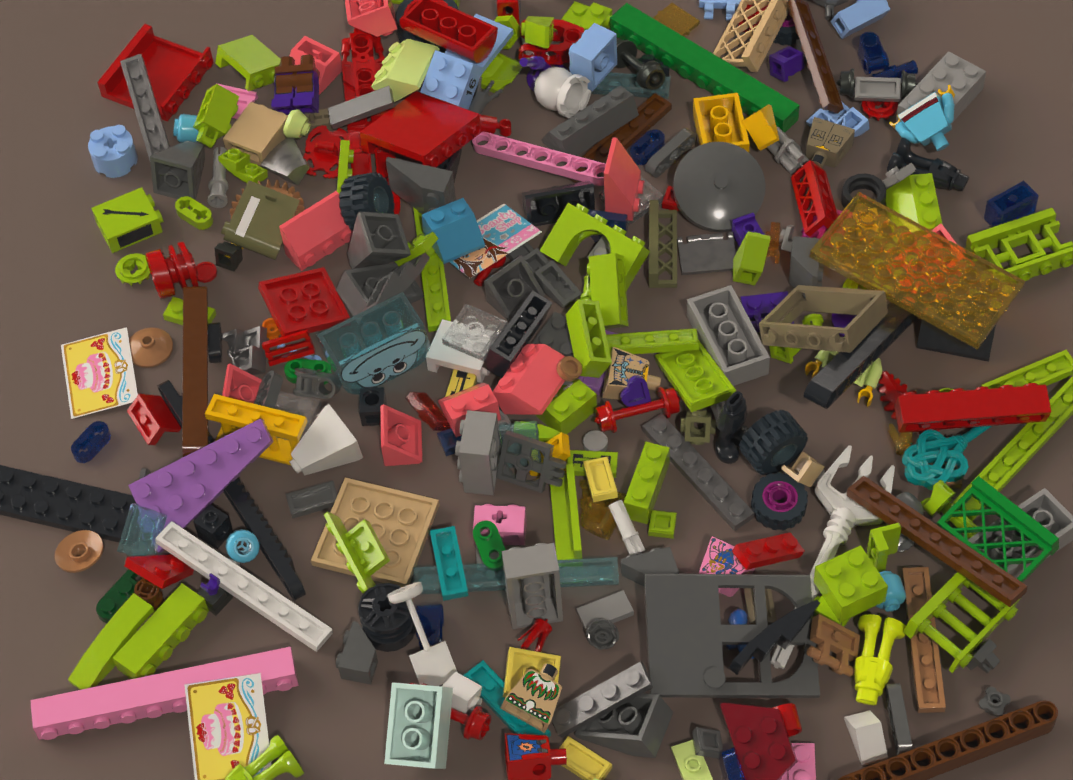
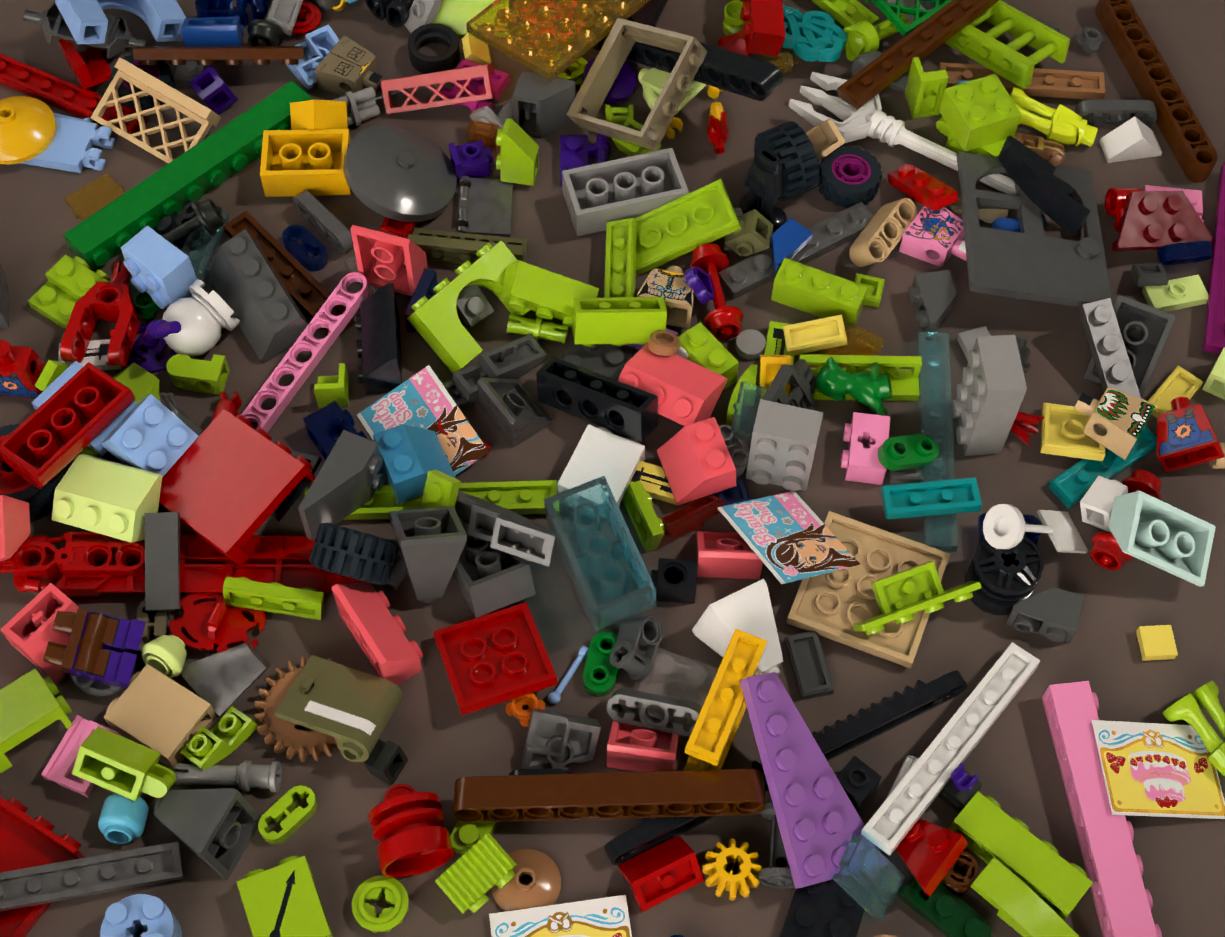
camera: 90 degrees left, 5 degrees up
(148, 311) = (476, 873): none -> lime brick
(152, 455) = (736, 857): none -> yellow gear
(249, 552) = (891, 745): medium azure head -> none
(292, 355) = (571, 678): red tile -> none
(341, 738) = (1156, 642): none -> light yellow tile
(406, 466) = (788, 537): none -> sticker
(431, 378) = (644, 519): none -> lime plate
(474, 332) = (593, 441): clear plate -> none
(478, 188) = (327, 425): none -> clear blue brick
(518, 182) = (333, 388): none -> lime panel
(522, 110) = (198, 374): none -> lime leg
(538, 30) = (99, 322): lime slope -> none
(549, 514) = (865, 387): none -> green animal
(630, 536) = (882, 317): white piece -> none
(693, 454) = (789, 241): none -> blue tile
(705, 524) = (883, 232): none -> tan beam
(809, 406) = (717, 127): none -> red piece
(840, 50) = (213, 31): none -> blue brick

